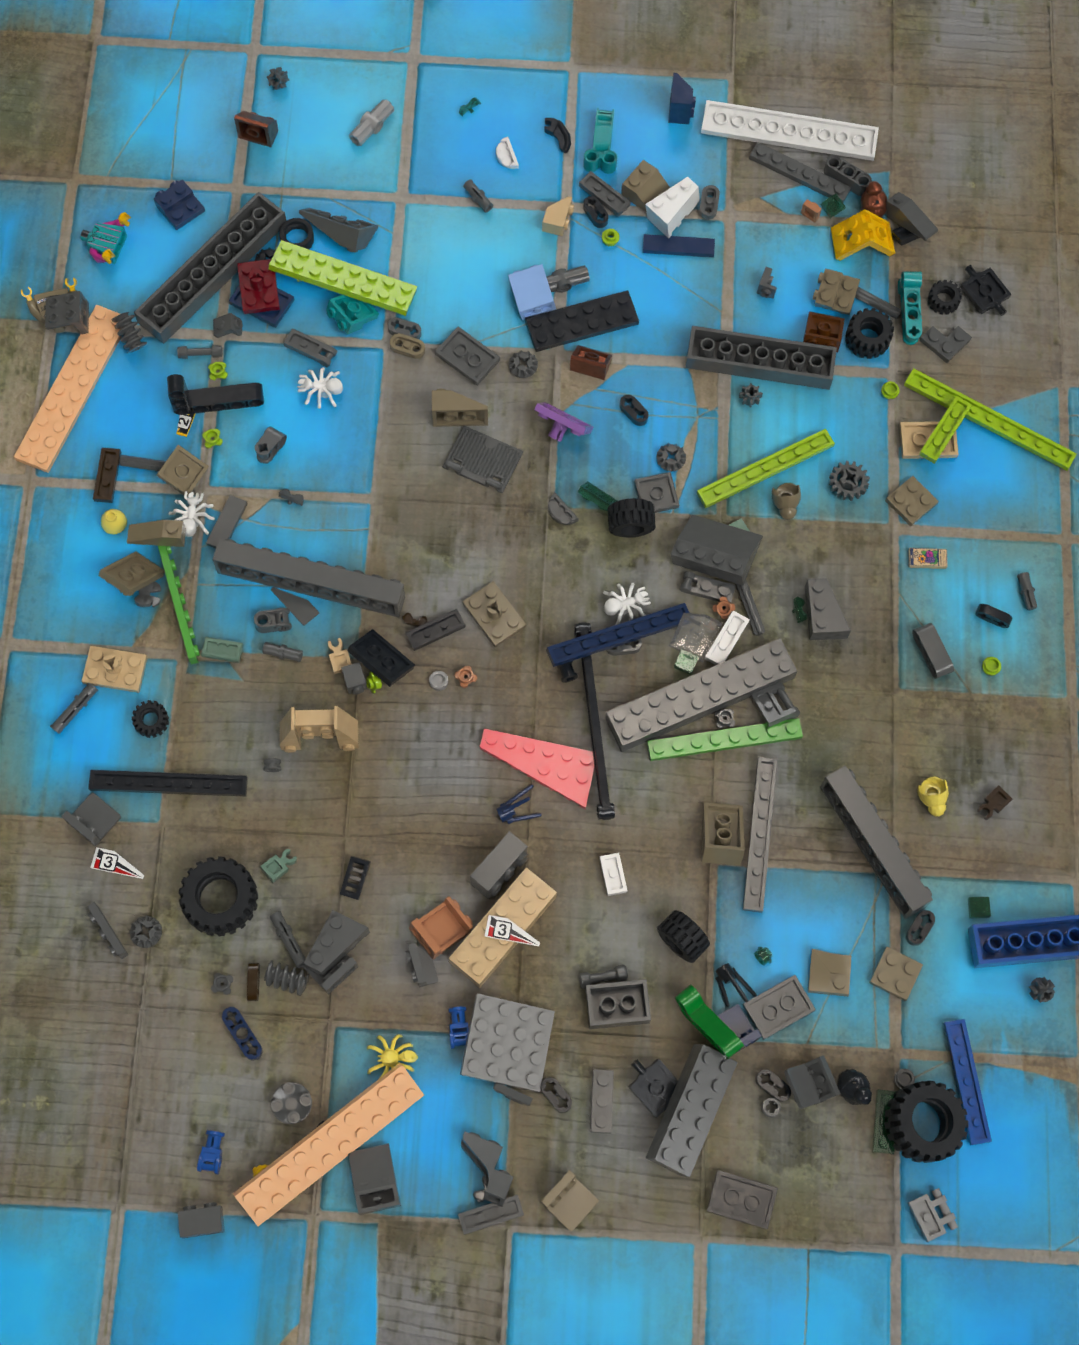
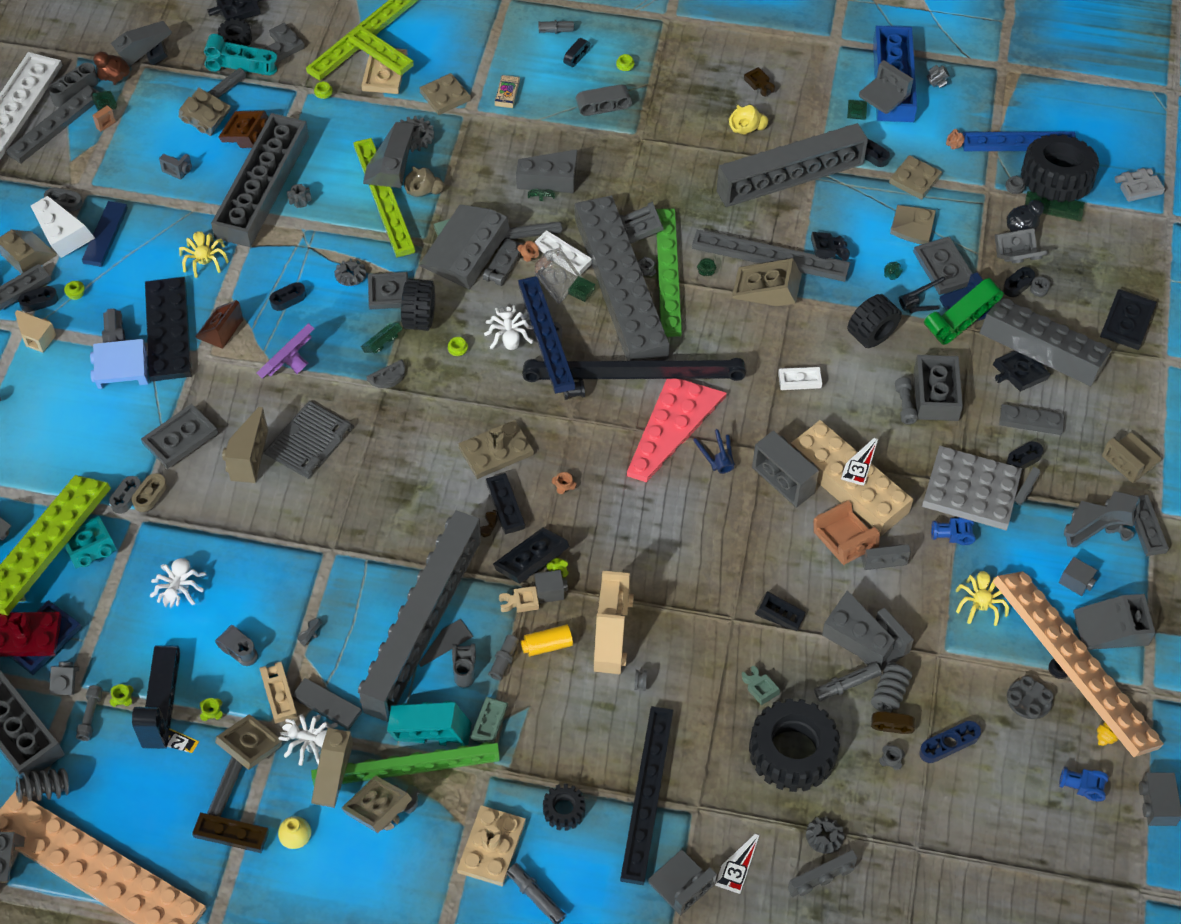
camera: 80 degrees left, 15 degrees down
(210, 603) = (429, 721): none -> teal wedge
(232, 483) = (278, 693): none -> tan plate
(301, 684) = (547, 640): none -> yellow brick
(310, 347) = (120, 591): dark grey plate -> none
(422, 1147) = (1078, 577): none -> dark grey brick
(438, 680) = (563, 509): light grey tile -> none
(523, 371) = (198, 393): dark grey gear -> none
(600, 563) = (457, 346): none -> lime plate
(669, 329) = (202, 253): none -> light yellow animal
(734, 770) = (706, 267): none -> clear green plate
(778, 883) = (828, 247): none -> black plate
(808, 464) = (390, 159): none -> dark grey wedge
(866, 231) = (147, 74): yellow bracket -> none
(869, 320) = (258, 91): black tyre -> none
(954, 1012) = (955, 139): none -> nougat plate
(988, 927) = (888, 88): none -> dark grey bracket

